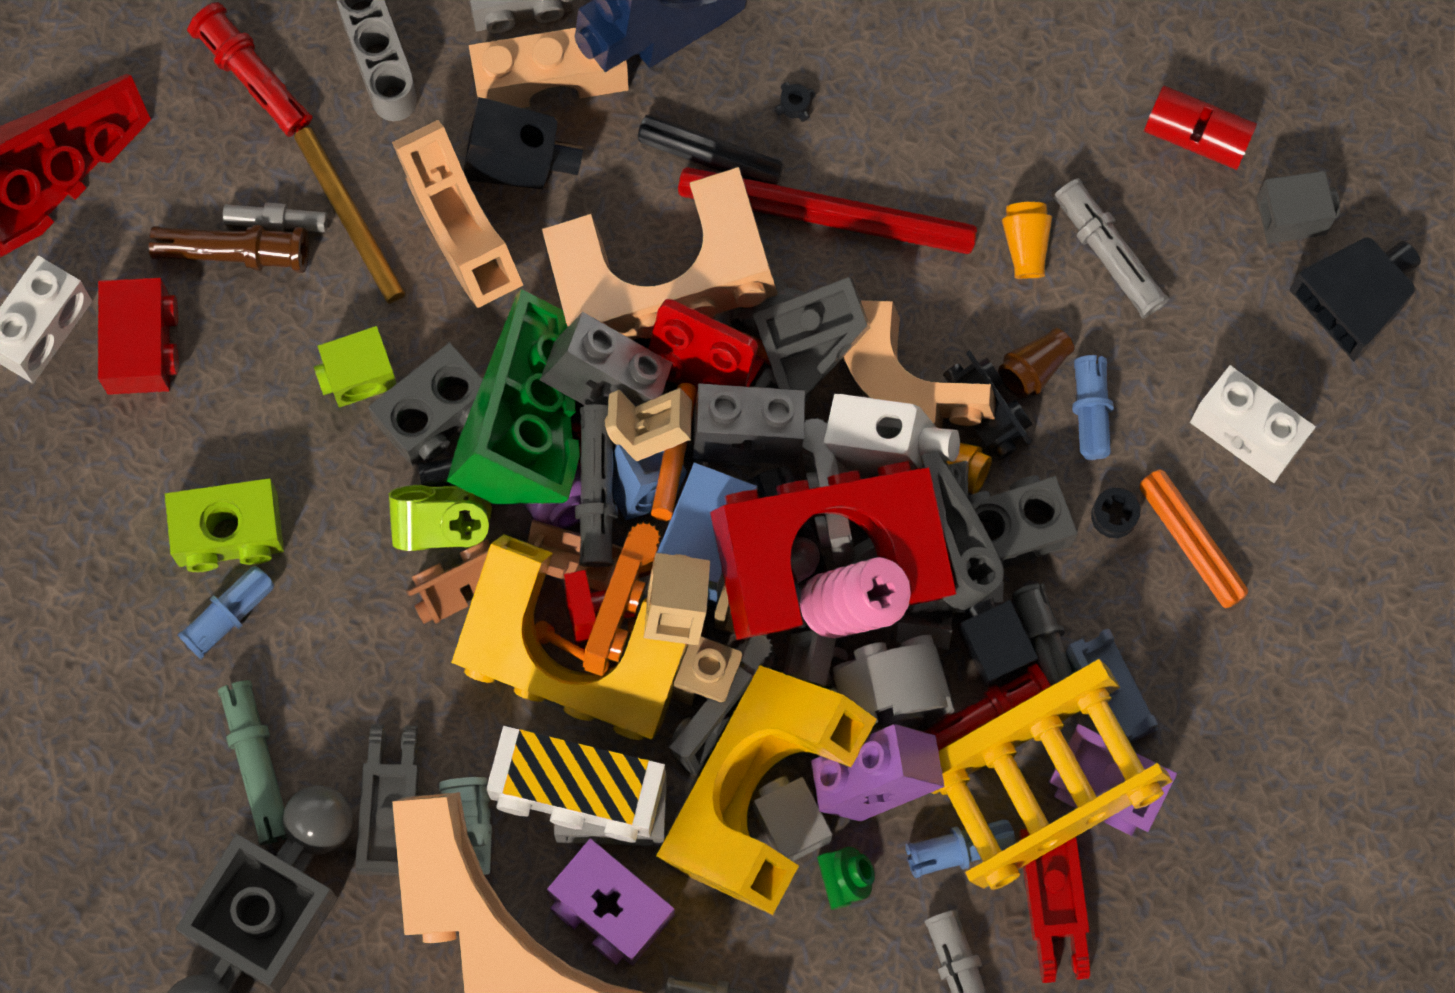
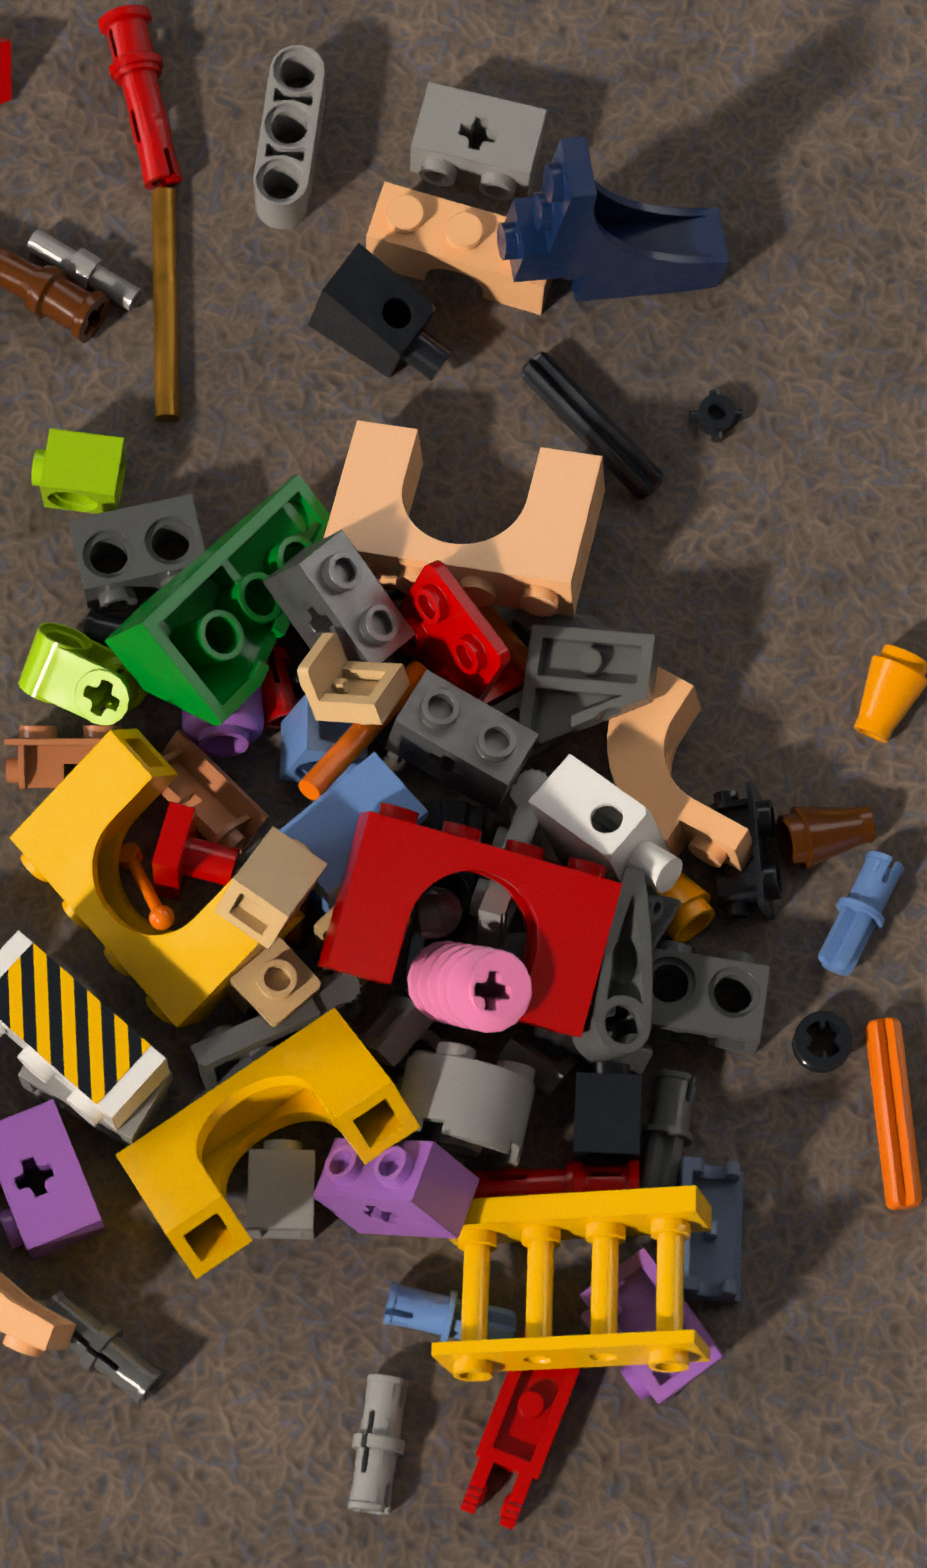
camera: 25 degrees right, 0 degrees up
(454, 215) = (273, 359): light nougat arch -> none
(596, 503) = (259, 733): dark grey pin -> none
(622, 595) = (220, 855): orange hinge -> none
(846, 876) = (310, 1283): green plate -> none
(848, 214) = (708, 569): red axle -> none

